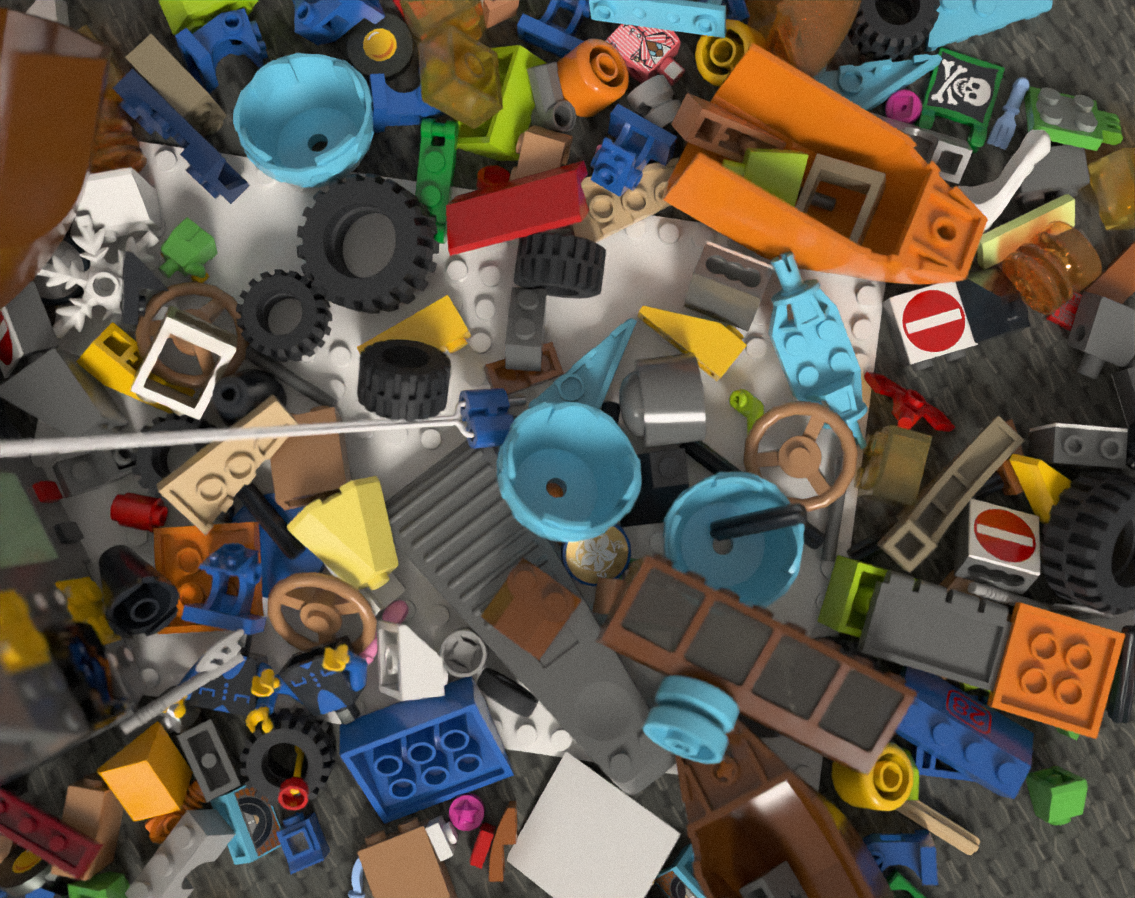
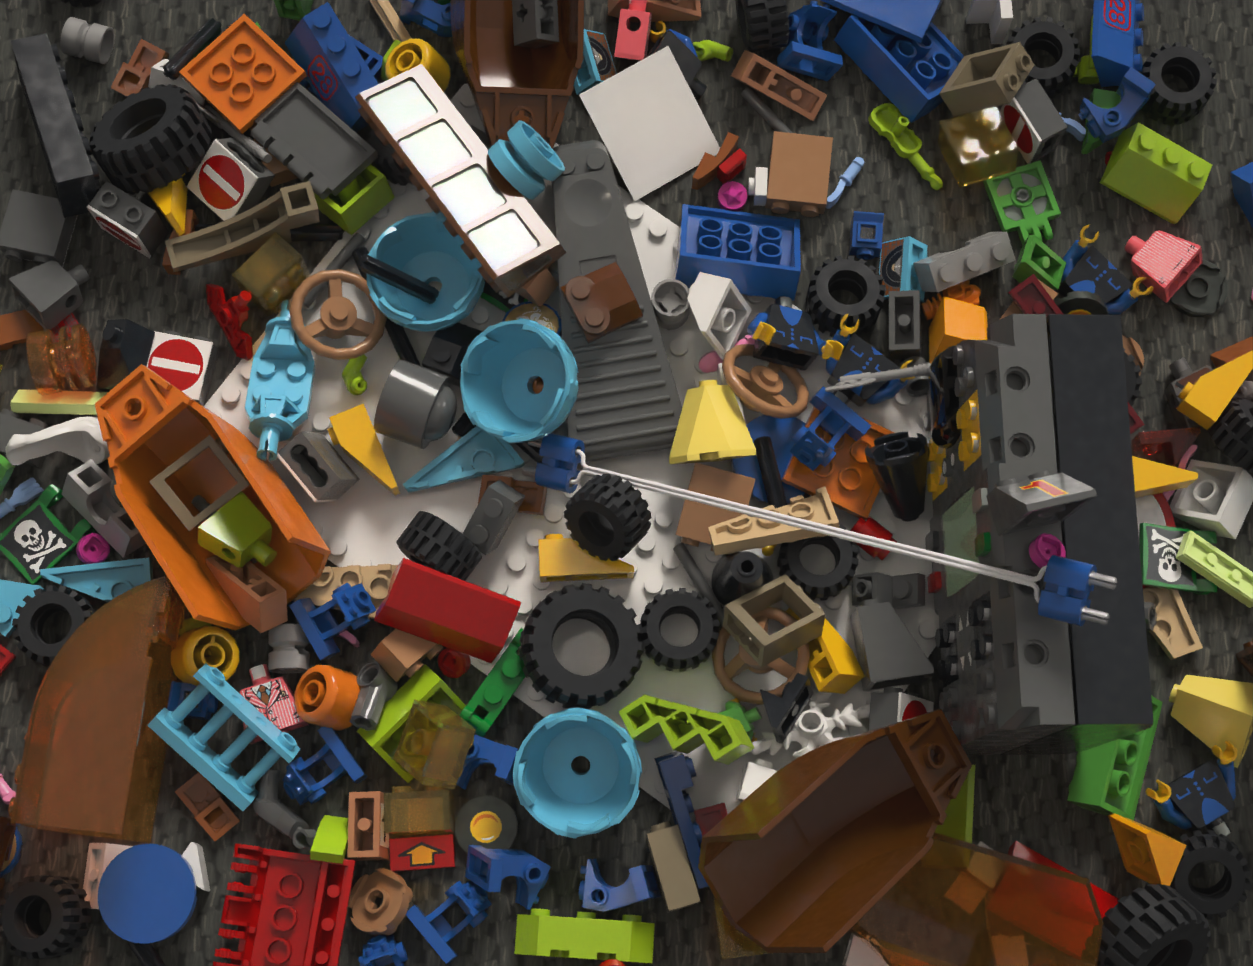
camera: 155 degrees left, 10 degrees down
(165, 156) = (709, 816): none -> red tile
(221, 217) = (686, 728): none -> lime brick
(291, 787) = (846, 267): red hinge -> none
(507, 692) = (653, 257): black tyre -> none

